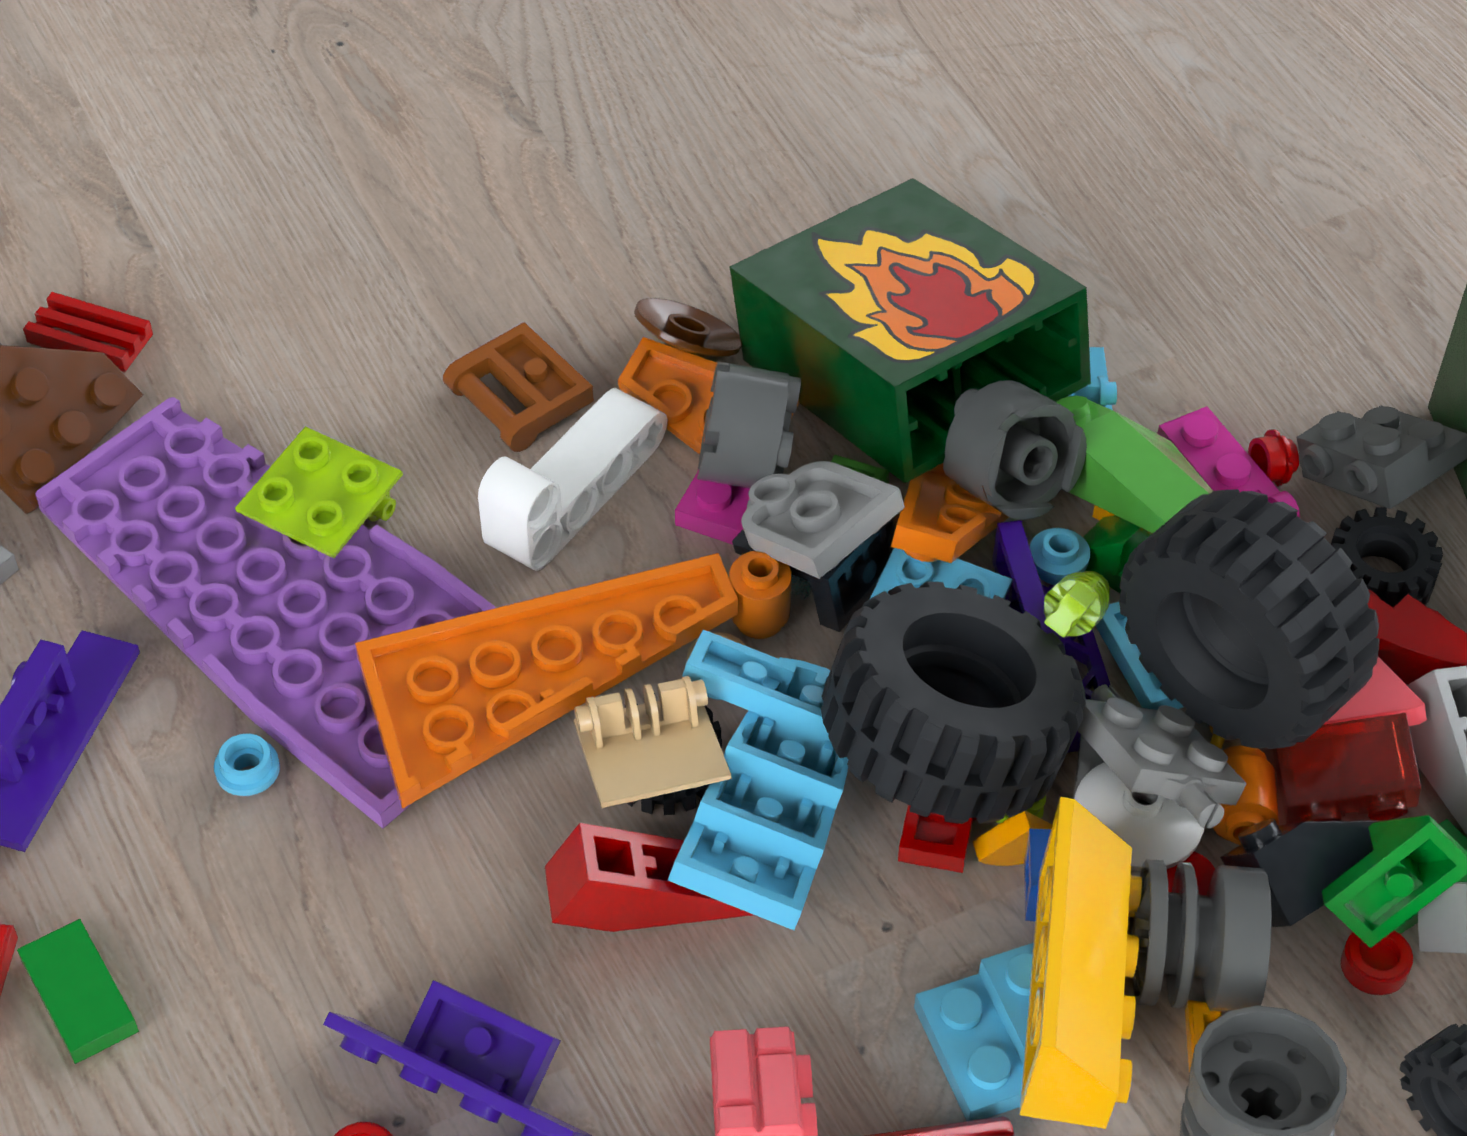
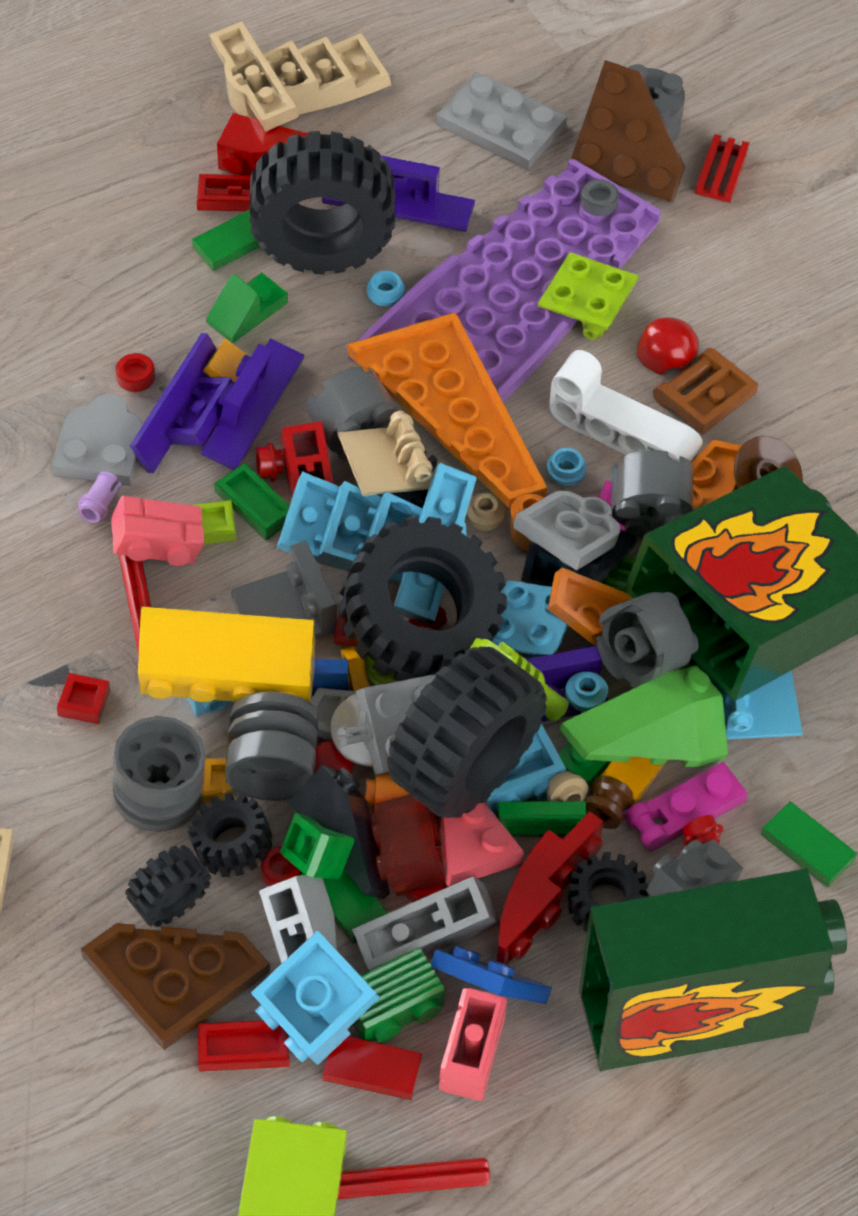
camera: 85 degrees right, 5 degrees up
(102, 793) = (322, 168): none -> black tyre
(133, 460) = (599, 197): none -> dark grey tile
(245, 974) = (245, 305): none -> green slope
(381, 998) = (224, 361): none -> light orange tile
(425, 422) = (667, 345): none -> red hair
(470, 960) = (251, 401): none -> dark purple bracket
(528, 799) = (351, 403): none -> dark grey brick
(598, 947) = (269, 461): none -> red plate
(641, 551) = (569, 459): none -> medium azure plate
(670, 976) = (253, 500): none -> green tile
(693, 1031) = (218, 522): none -> lime tile
(895, 919) = (292, 594): none -> dark grey bracket
(1271, 360) = (809, 844): none -> green tile
(1372, 983) = (239, 852): none -> black tyre

